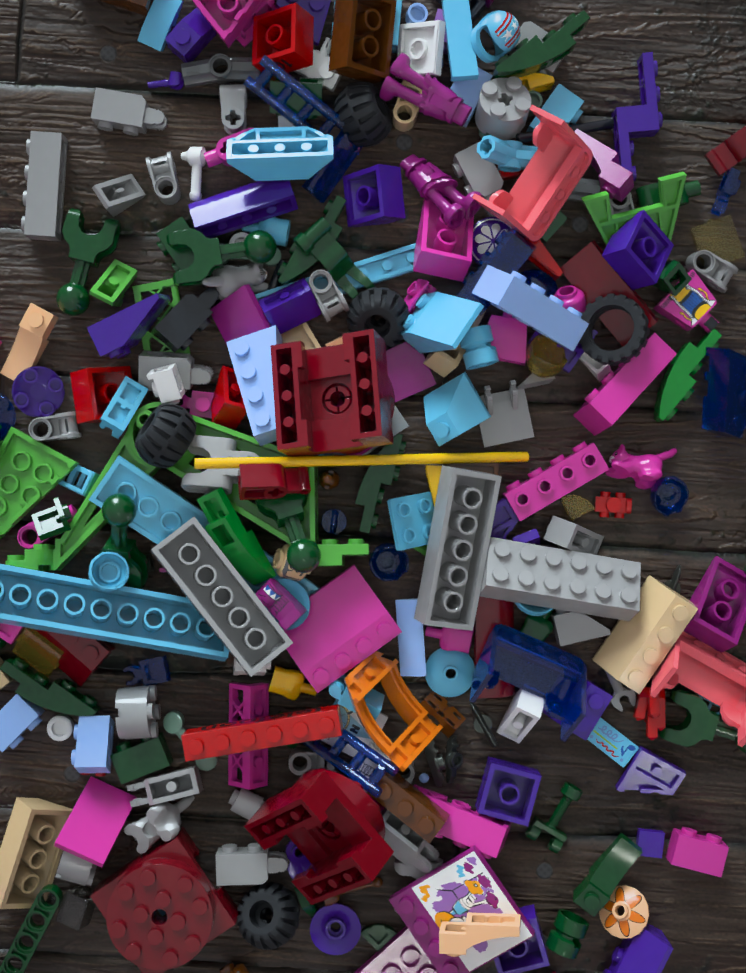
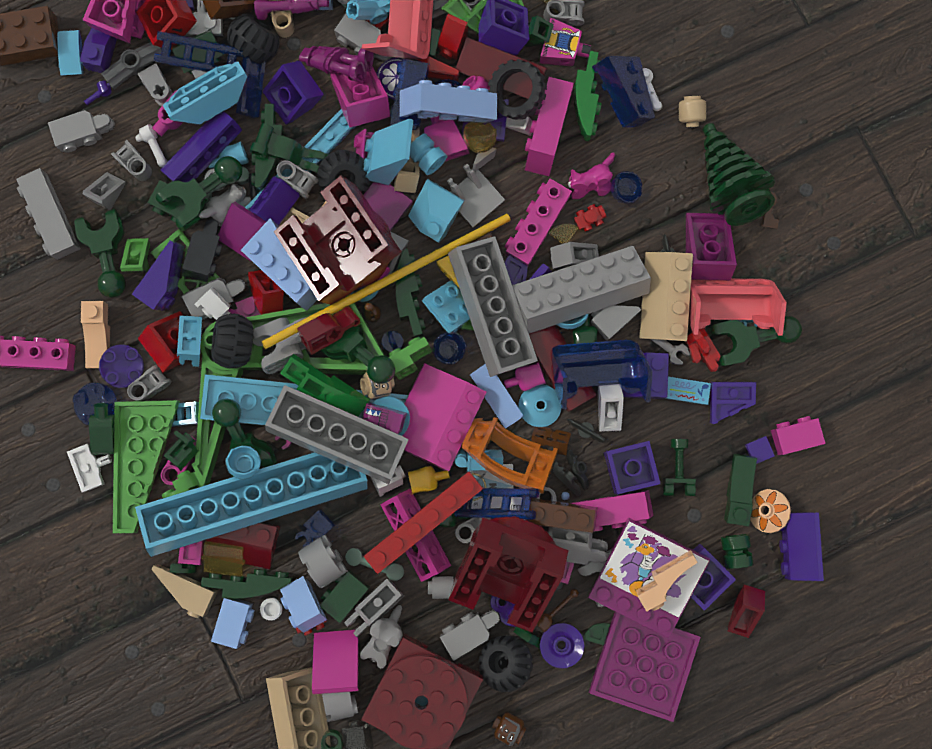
camera: 30 degrees left, 5 degrees down
(576, 232) = (452, 37): none -> red slope

